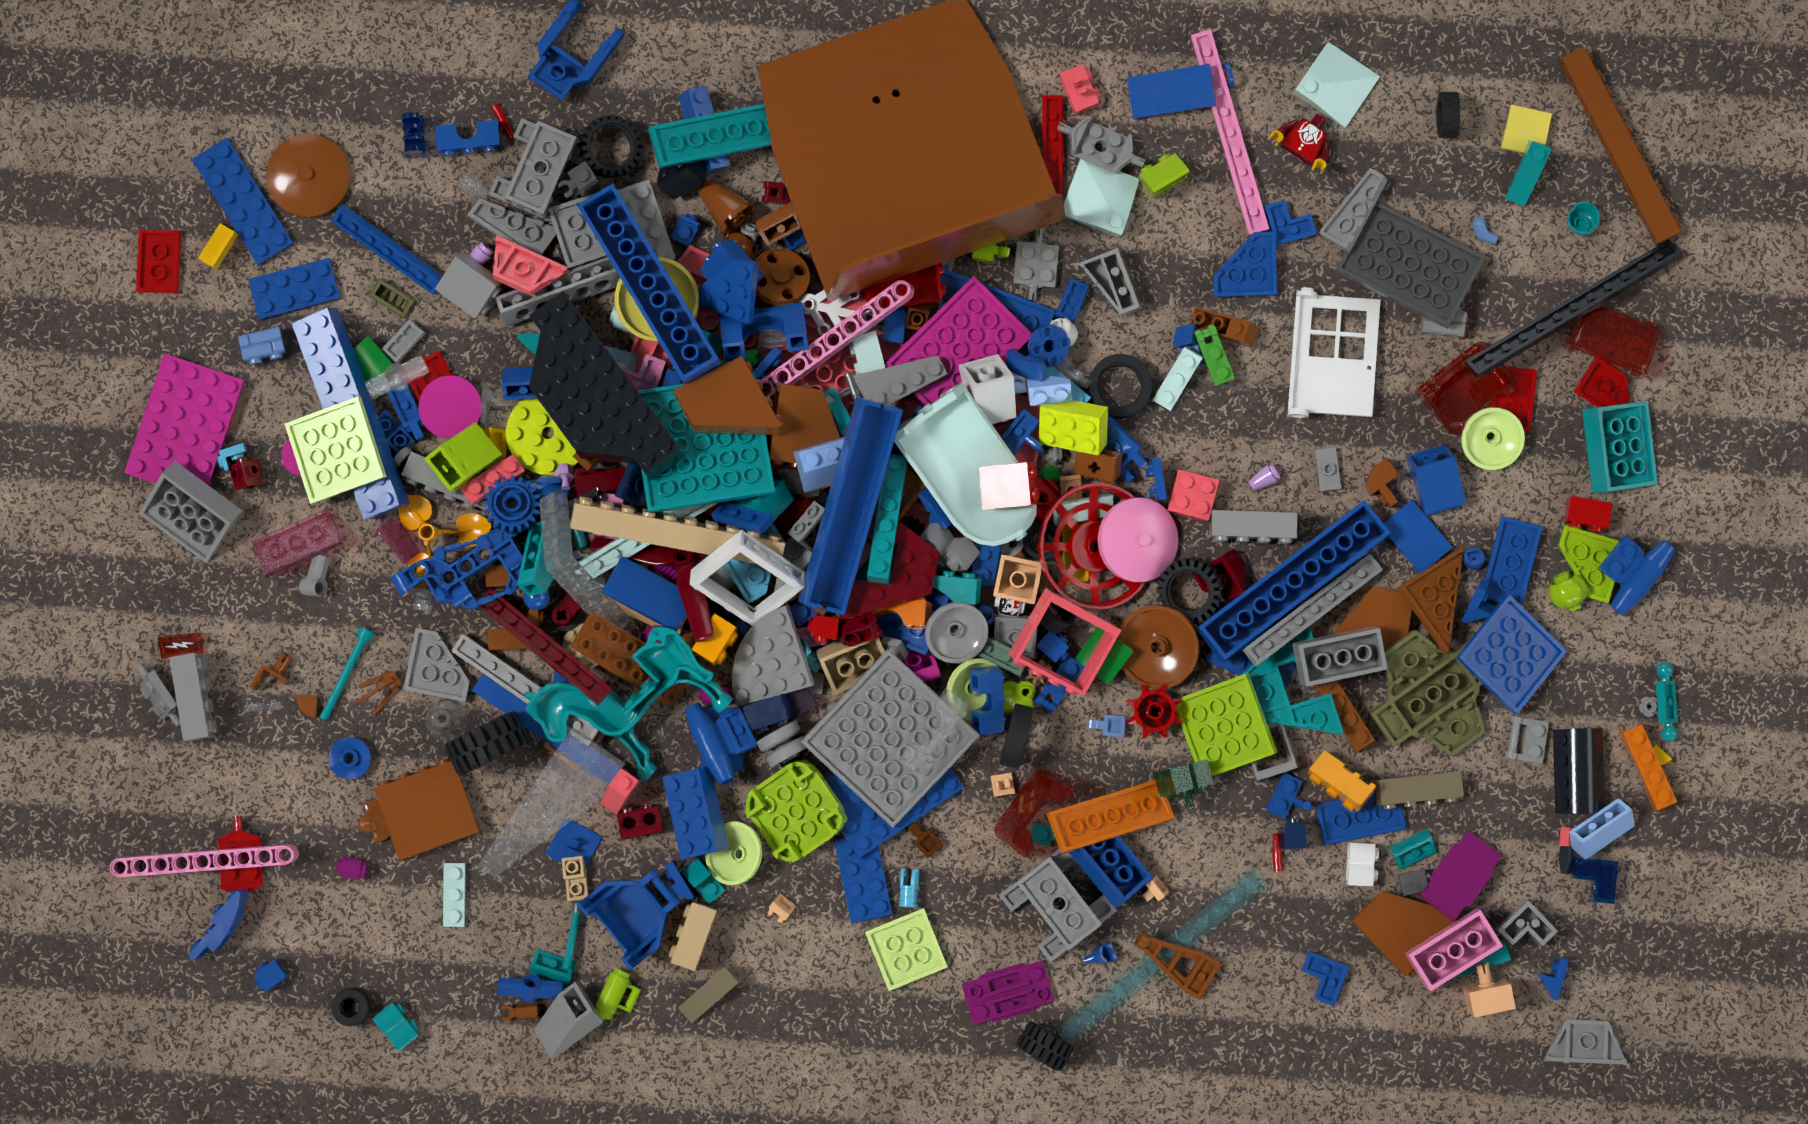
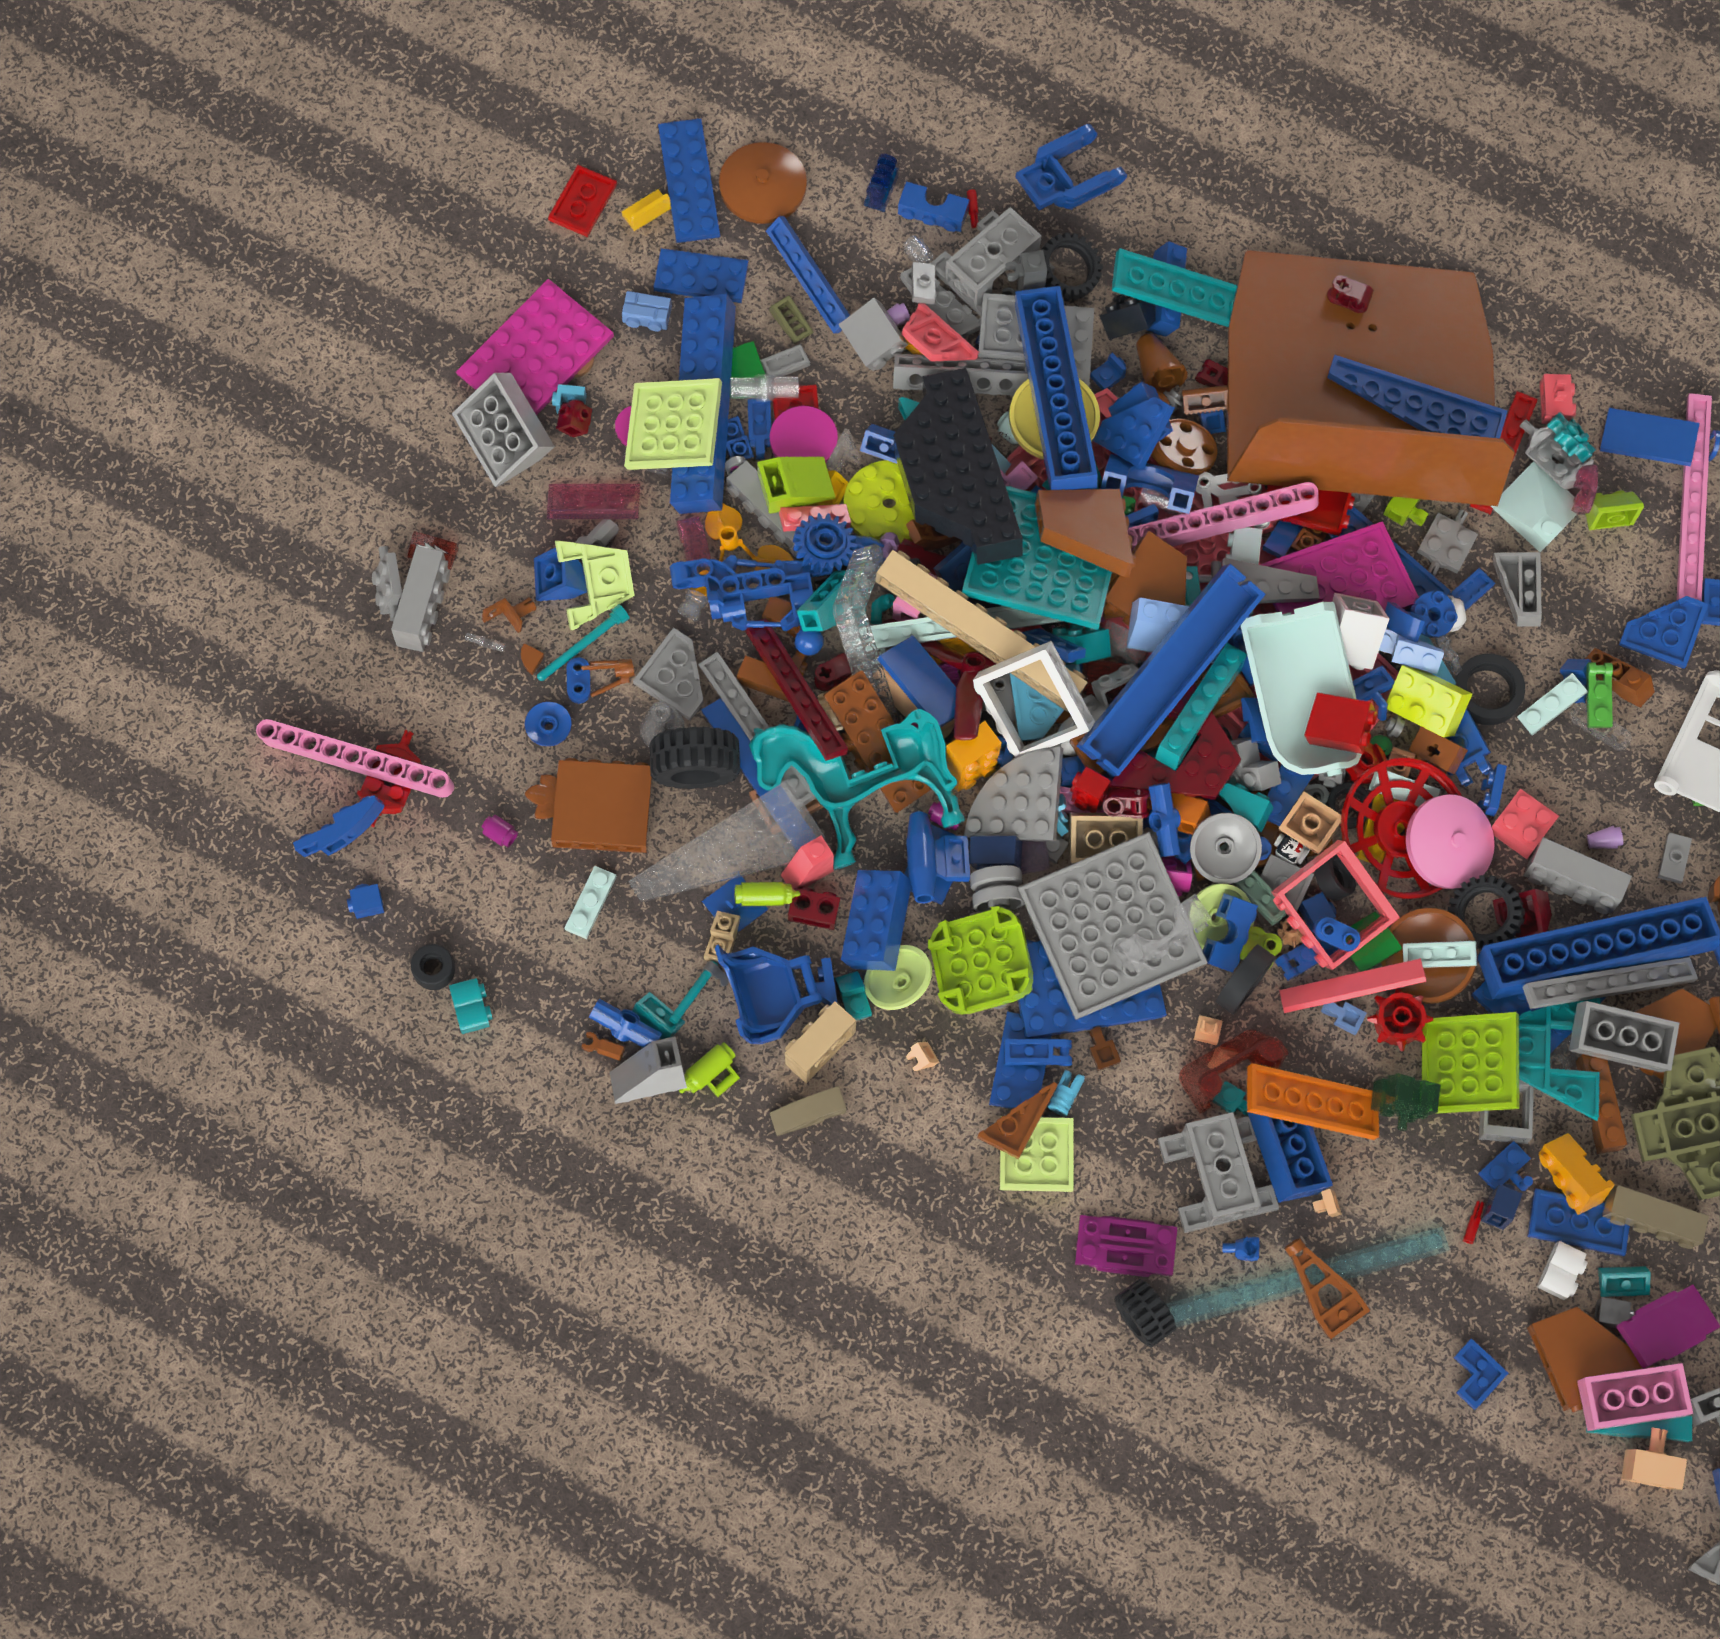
camera: 20 degrees right, 15 degrees down
(298, 622) = (558, 579): none -> blue slope
(338, 607) = (606, 578): none -> yellowish green wing
(354, 709) = (578, 679): none -> blue plate
(491, 217) = (923, 283): none -> light grey plate
(595, 832) = (764, 894): none -> lime piece
(867, 72) = (1352, 295): none -> dark red piece
(872, 867) = (1037, 1052): none -> blue plate
(881, 938) = (1014, 1130): none -> dark orange wing
(896, 631) = (1164, 819): none -> blue piece
(992, 156) = (1418, 403): none -> blue wing
(1077, 667) = (1337, 935): none -> blue plate
(1105, 124) = (1571, 437): none -> teal gear
(1105, 701) = (1352, 985): none -> coral tile
(1132, 162) = (1587, 483): none -> clear pink slope
(1165, 645) = (1442, 953): none -> light aqua tile

